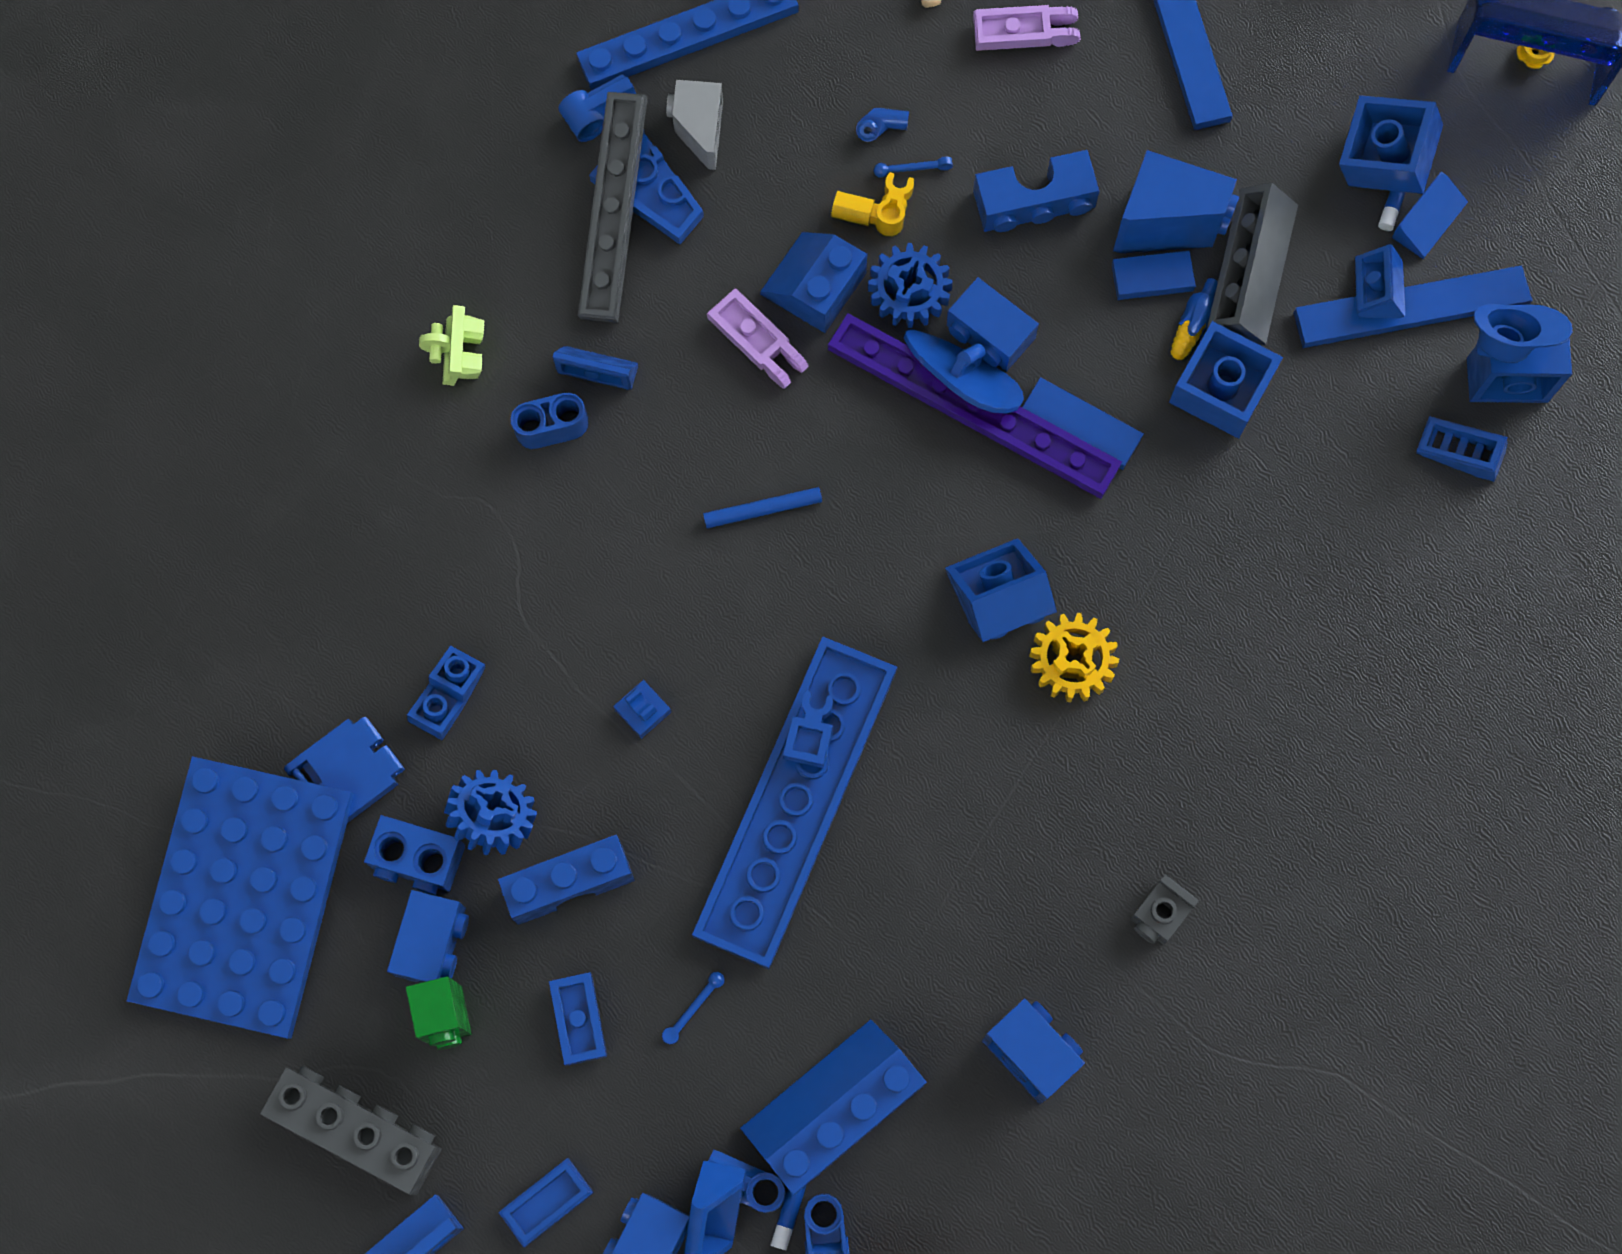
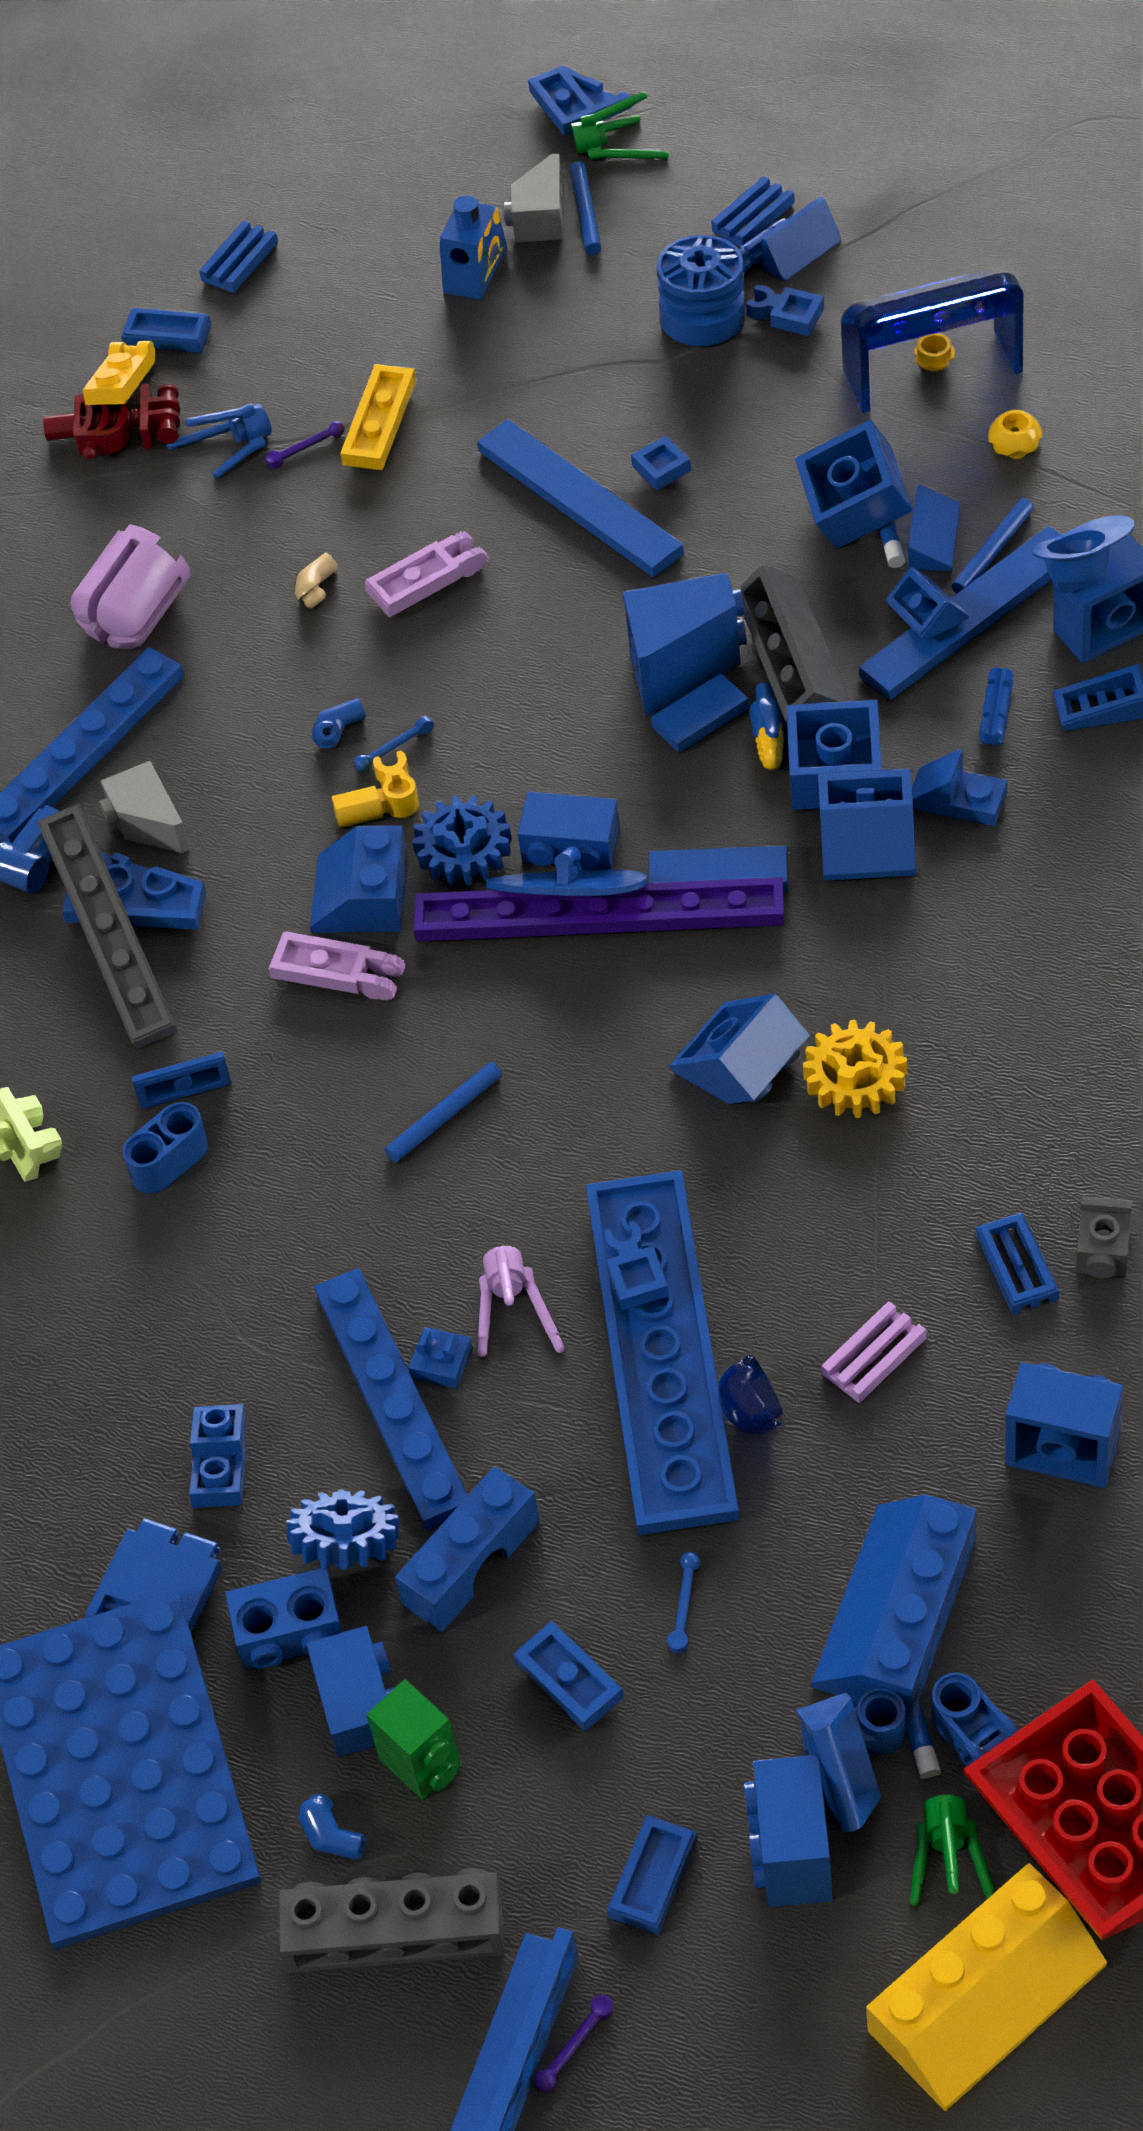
camera: 25 degrees left, 20 degrees down
(348, 1031) = (323, 1832): none -> blue arm
(590, 721) = (391, 1397): none -> blue plate
(721, 674) = (505, 1279): none -> lavender plant
(830, 884) = (749, 1397): none -> clear blue hair
(978, 885) = (899, 1324): none -> lavender tile
(1007, 203) = (511, 722): blue arch -> none
(1084, 921) = (1030, 1295): none -> blue tile
(1211, 456) = (867, 824): none -> blue slope
(1261, 30) = (661, 462): none -> blue plate
(1295, 457) = (949, 791): none -> blue slope
(1378, 403) = (996, 706): none -> blue axle
(1468, 256) = (994, 544): none -> blue bar
(1545, 173) = (1015, 434): none -> yellow plate

